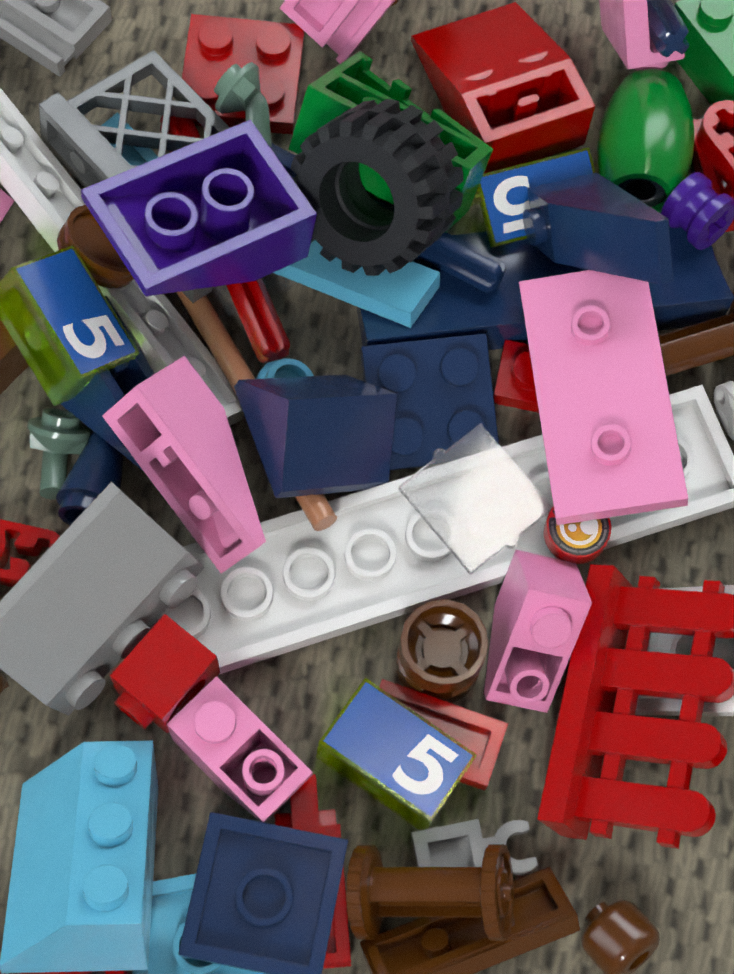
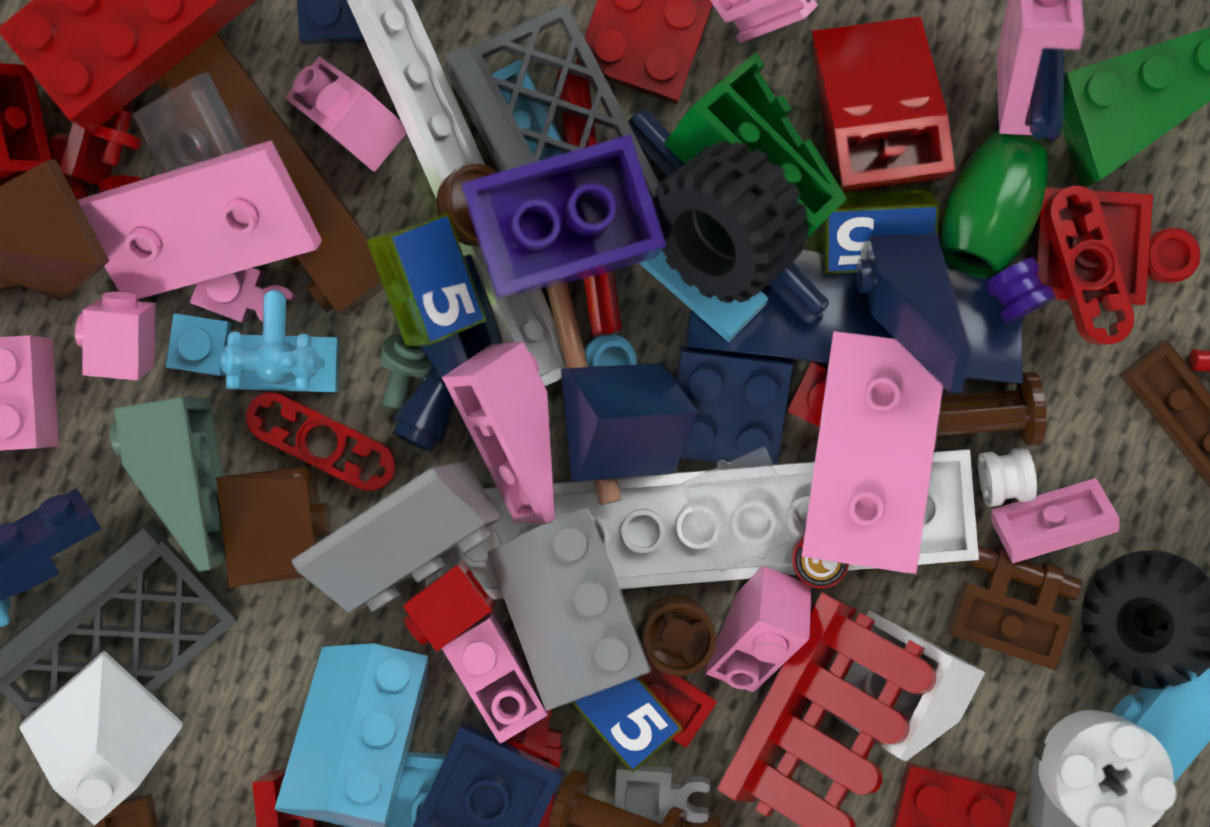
camera: 20 degrees right, 20 degrees up
(241, 91) = (636, 73): sand green plate -> none
(309, 641) = (568, 609): none -> light grey slope

